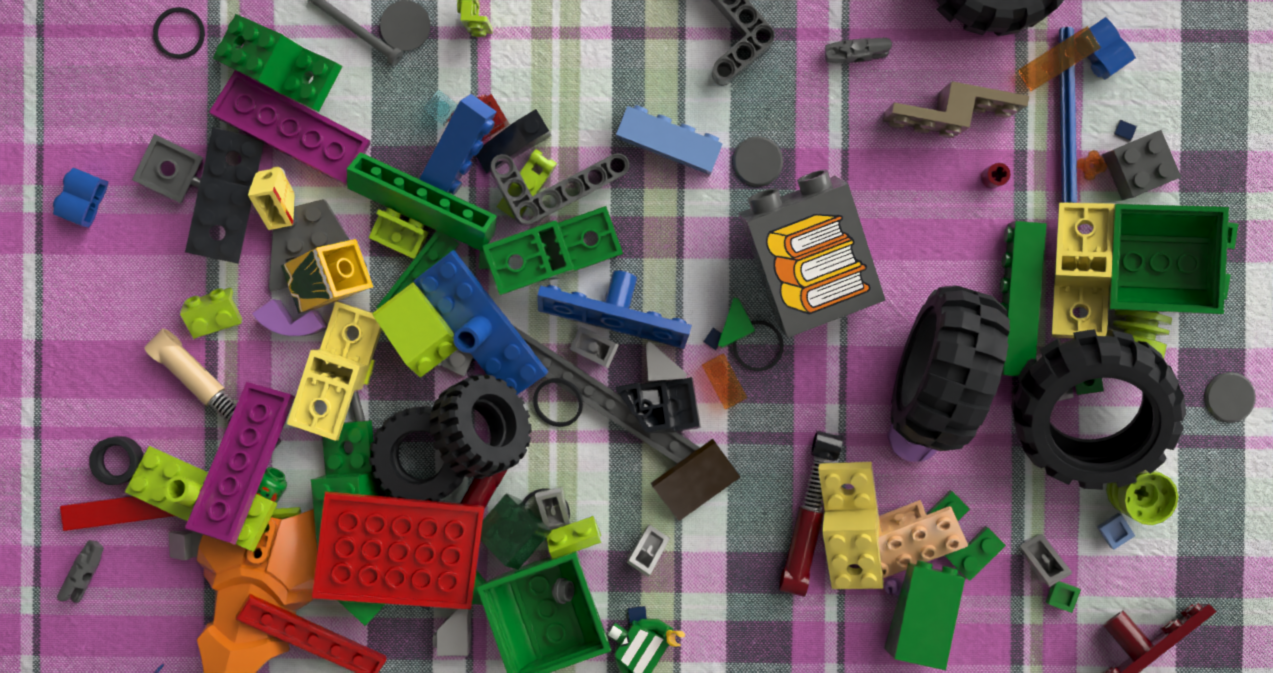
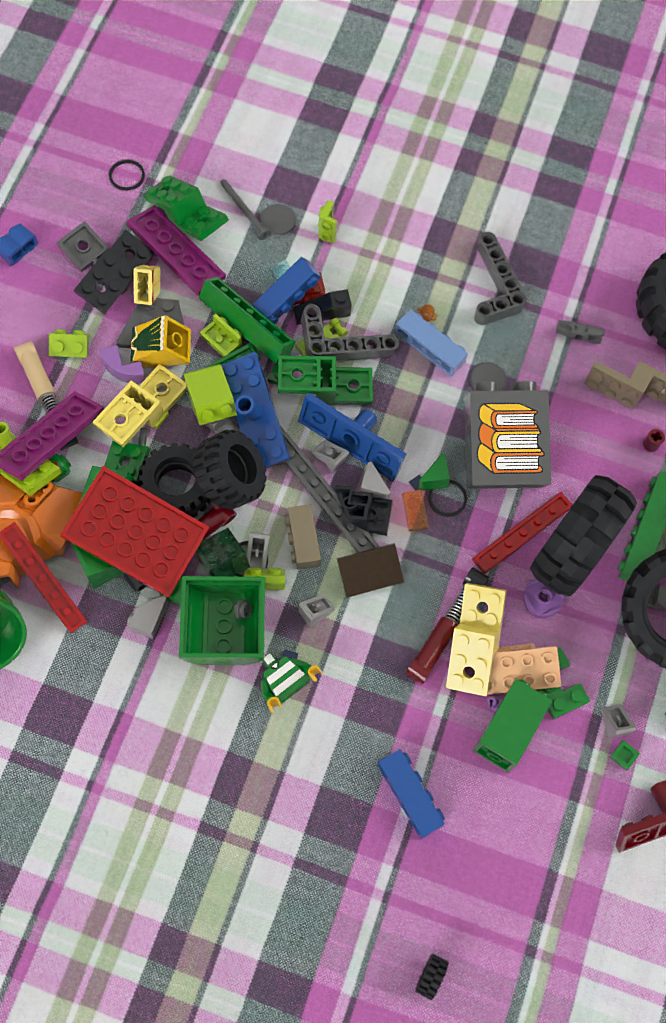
camera: 15 degrees right, 20 degrees down
(543, 417) = (272, 483): black piece -> none
(600, 466) = (303, 537): none -> dark tan brick
(649, 90) = (429, 310): none -> clear orange plate
(865, 358) = (522, 533): none -> red tile

